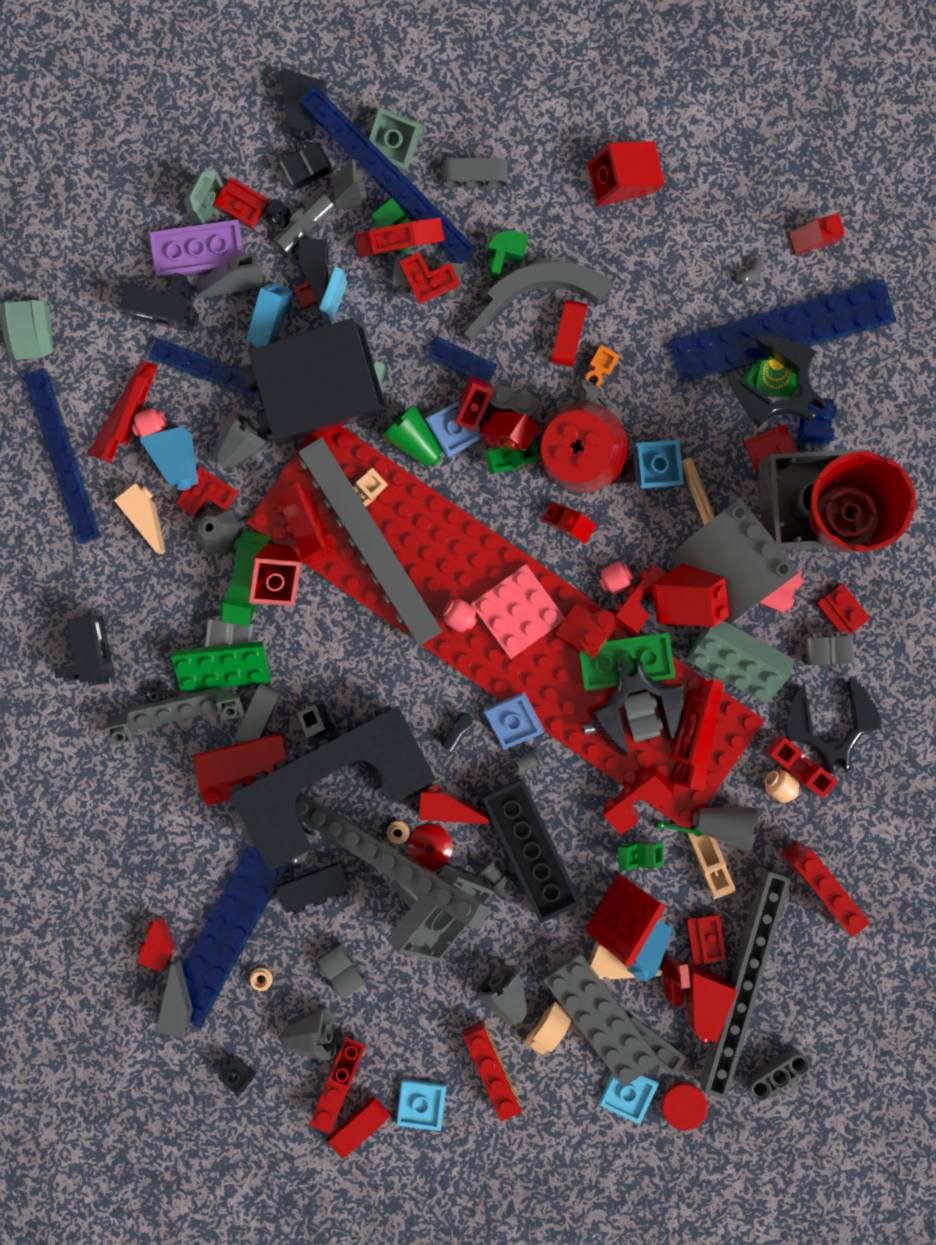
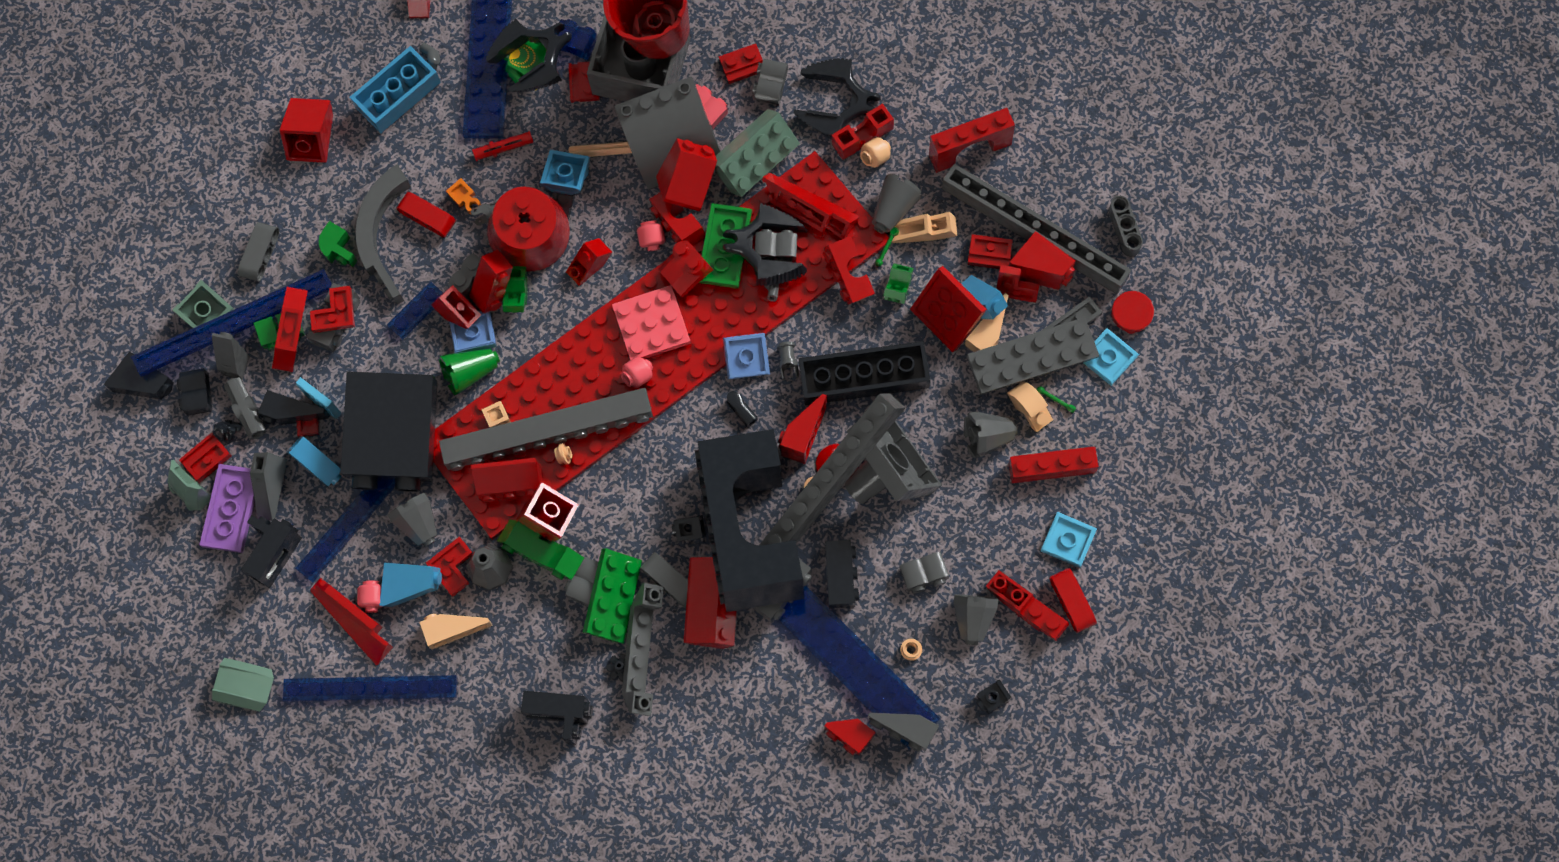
camera: 75 degrees left, 15 degrees down
(350, 568) = (563, 454): none -> light nougat plate
(561, 1068) = (1070, 408): none -> green hinge
(670, 386) = (479, 152): none -> red pin
(698, 249) = (395, 89): none -> dark azure brick

